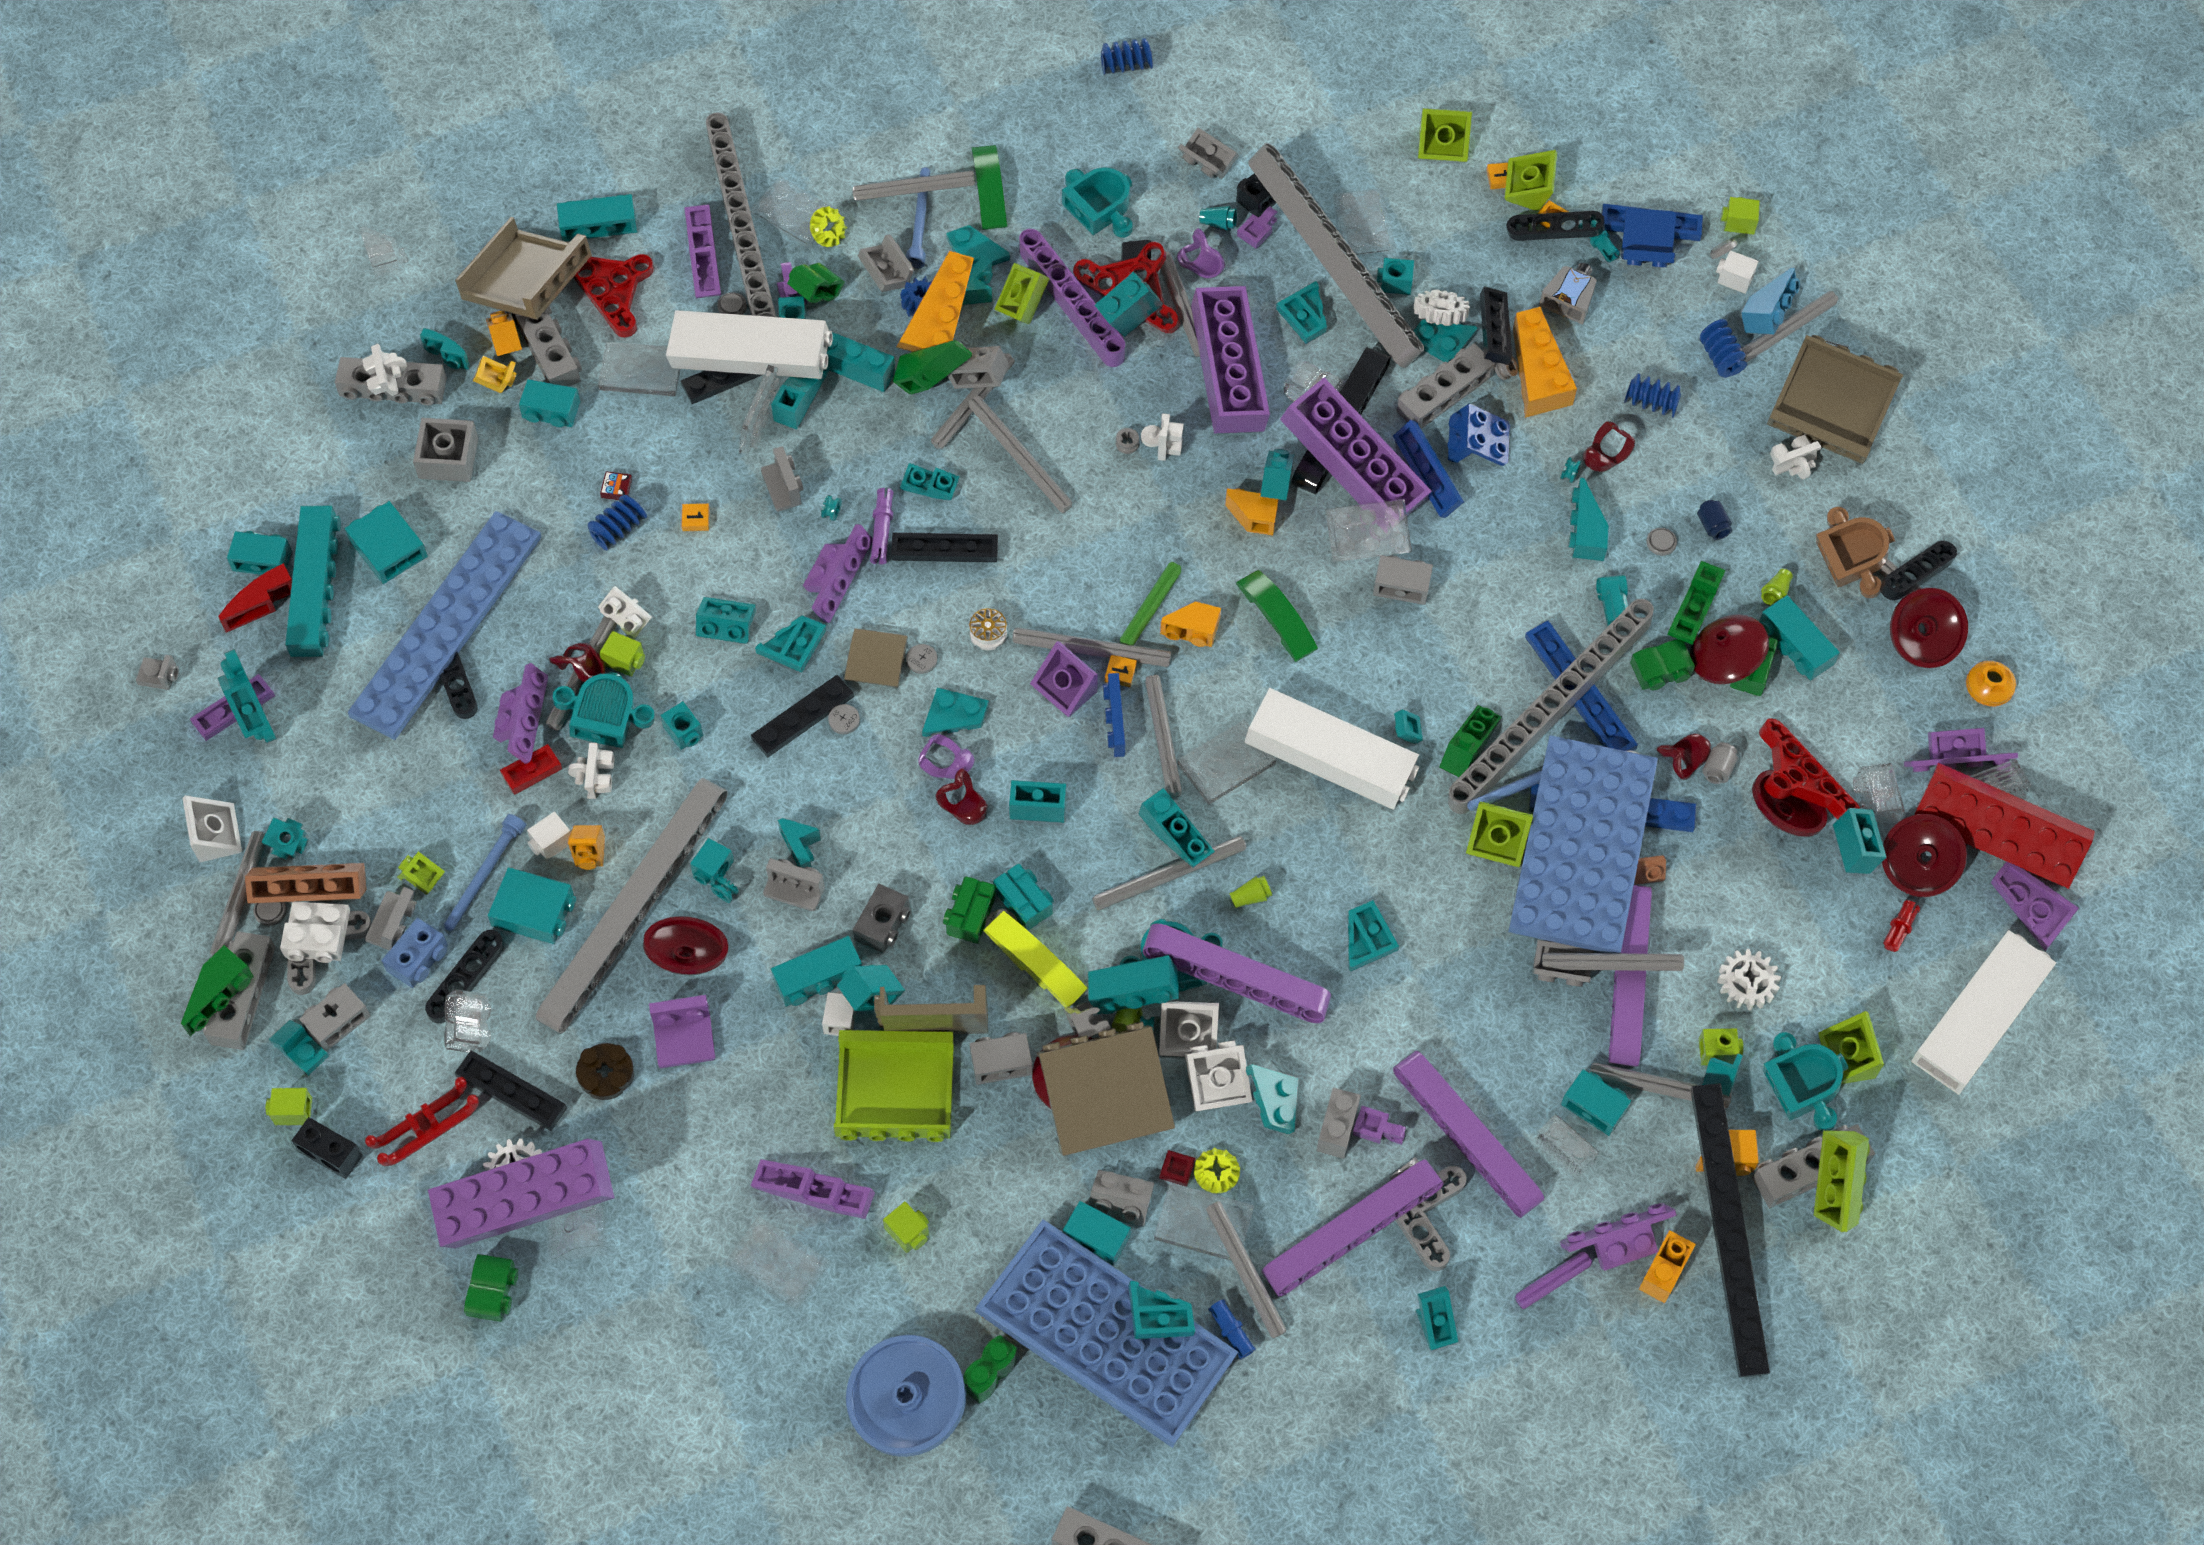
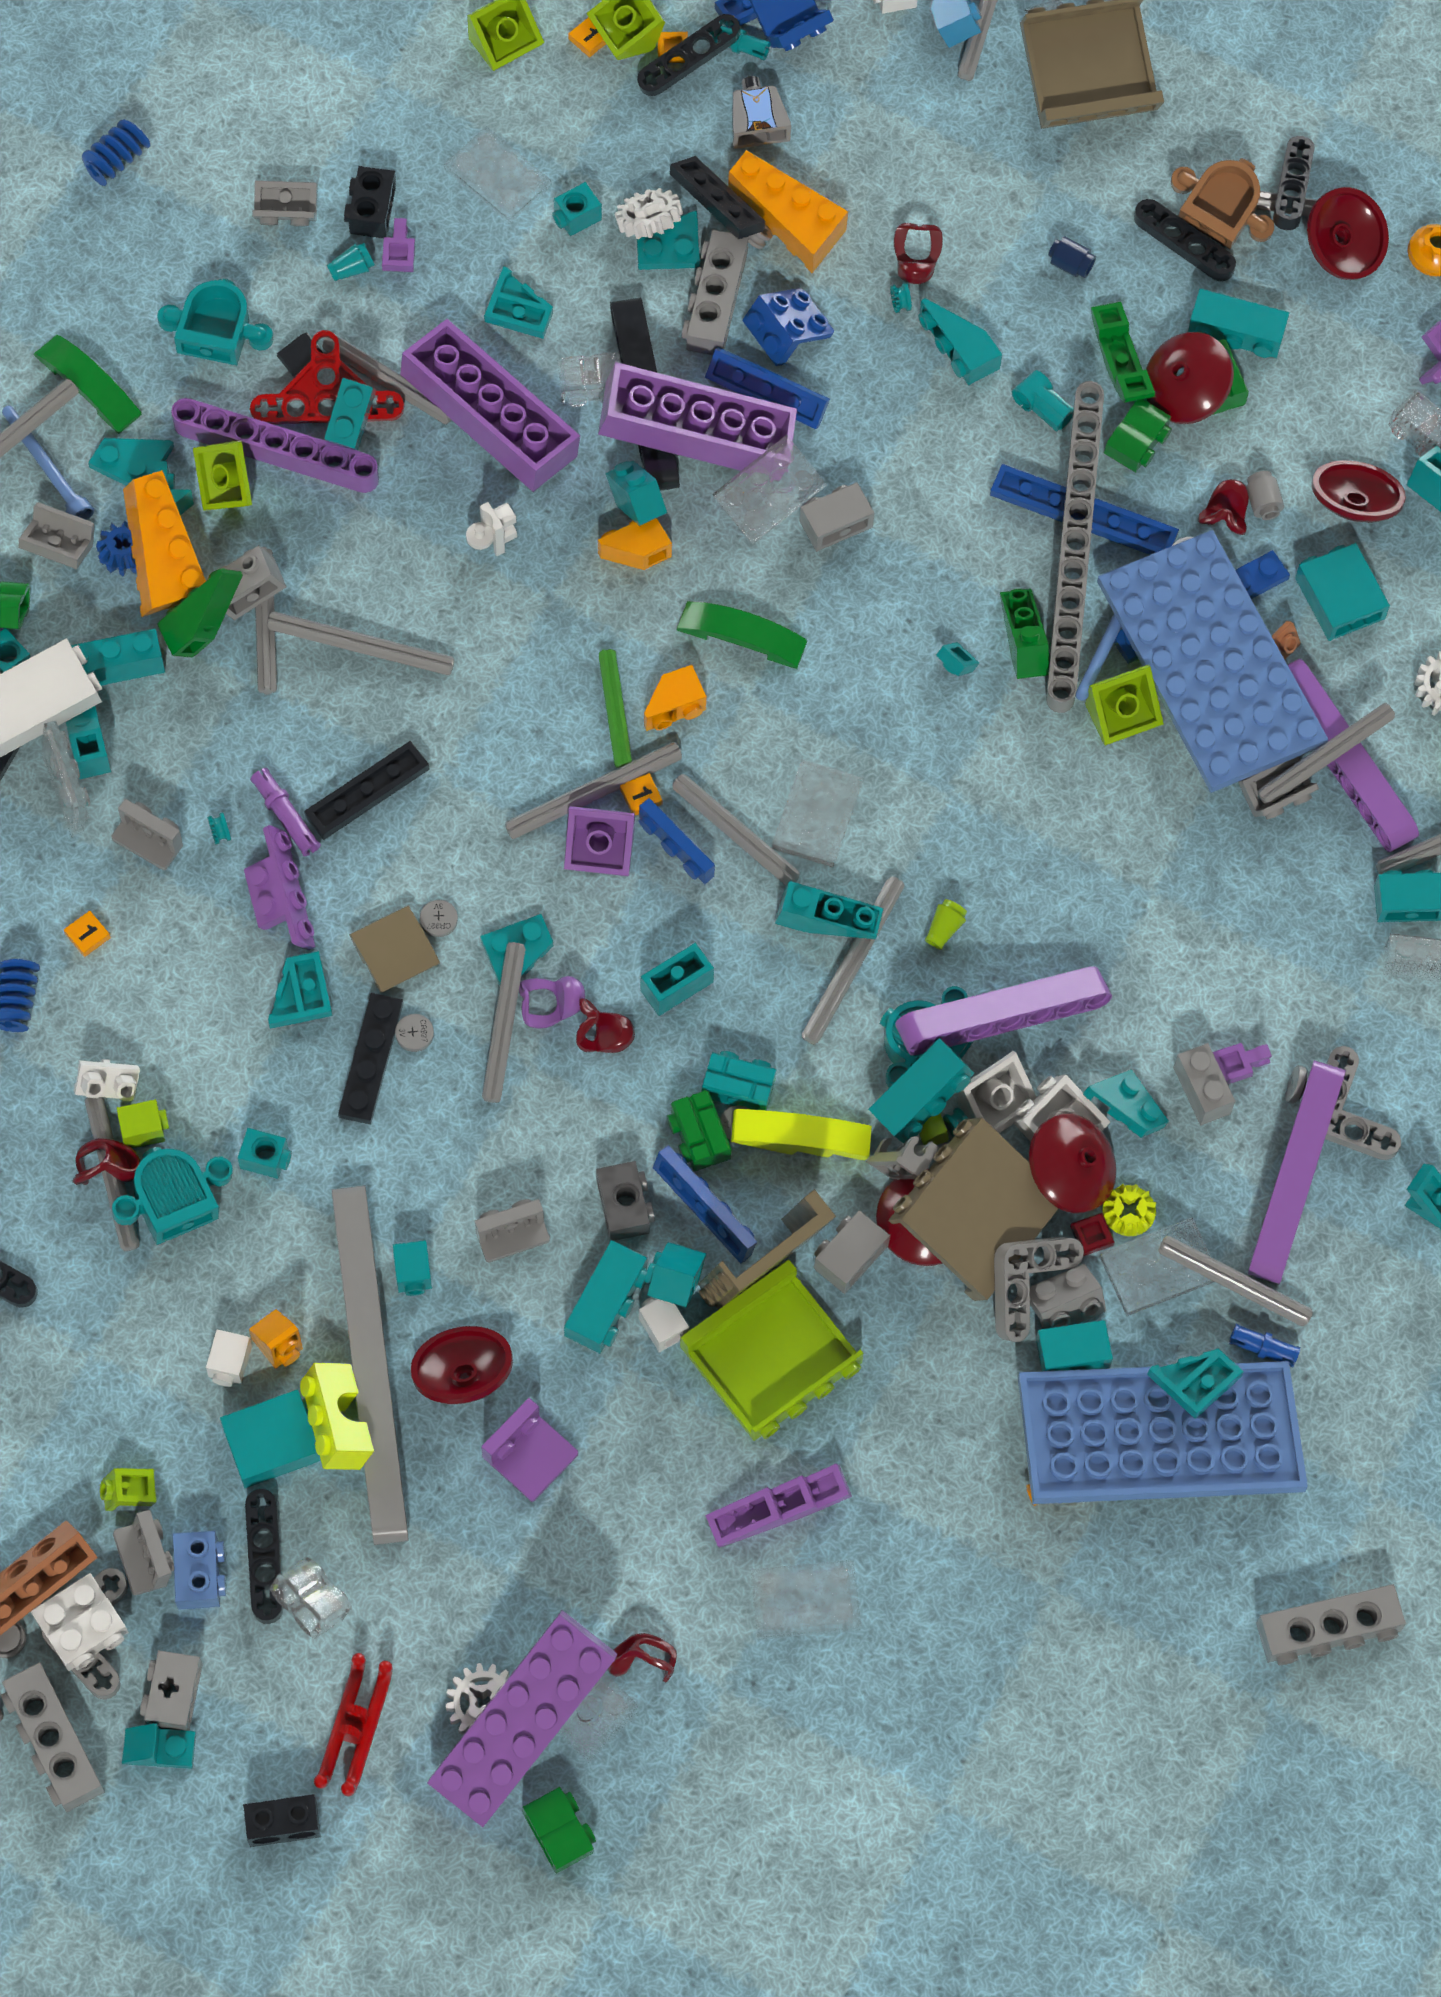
camera: 40 degrees left, 5 degrees up
(216, 984) = (35, 1740): green slope -> none
(289, 1106) = (208, 1810): lime brick -> none
(511, 828) = (181, 1377): medium blue piece -> none
(511, 1090) = (410, 1630): black plate -> none
(521, 712) = (89, 1258): medium lavender bracket -> none
(521, 775) = (148, 1305): red plate -> none
(566, 936) = (339, 1441): none -> neon yellow arch
(593, 1059) = (483, 1524): dark brown plate -> none
(594, 781) = (208, 1248): white hips -> none
(625, 1210) = (630, 1649): none -> dark red piece
(724, 620) = (211, 1016): teal bracket -> none
(724, 889) = (447, 1284): teal bush -> none
(798, 838) = (473, 1185): teal slope -> none
(903, 751) = (503, 1022): none -> light grey axle
(906, 1395) = (1033, 1628): medium blue dish -> none
(907, 1227) = (899, 1474): lime brick -> none
(933, 949) = (705, 1205): none -> blue plate
(934, 484) = (296, 734): teal slope -> none
(988, 629) = (479, 843): white wheel -> none
(995, 1364) = (1086, 1553): green brick -> none
(1098, 1153) = (1018, 1273): none -> light grey beam
(1127, 433) = (461, 551): light grey bush -> none
(1183, 1103) = (1061, 1167): none -> dark red dish
(1208, 263) = (383, 316): medium lavender piece -> none
(1332, 749) = (908, 730): white brick -> none
(1336, 255) = (506, 226): light grey beam -> none
(1368, 936) = (1084, 888): teal wing -> none
(1468, 1134) = (1322, 1008): medium lavender beam -> none
(1653, 394) = (918, 167): blue piece -> none
(1661, 541) = (1037, 312): light grey piece -> none
(1722, 864) = (1342, 591): none -> teal brick
(1723, 348) = (944, 79): blue piece -> none
(1776, 587) = (1181, 290): lime cone -> none
(1796, 461) = (1100, 134): white hips -> none
(1808, 785) = (1343, 462): red beam -> none
(1811, 559) = (1188, 236): none -> black beam

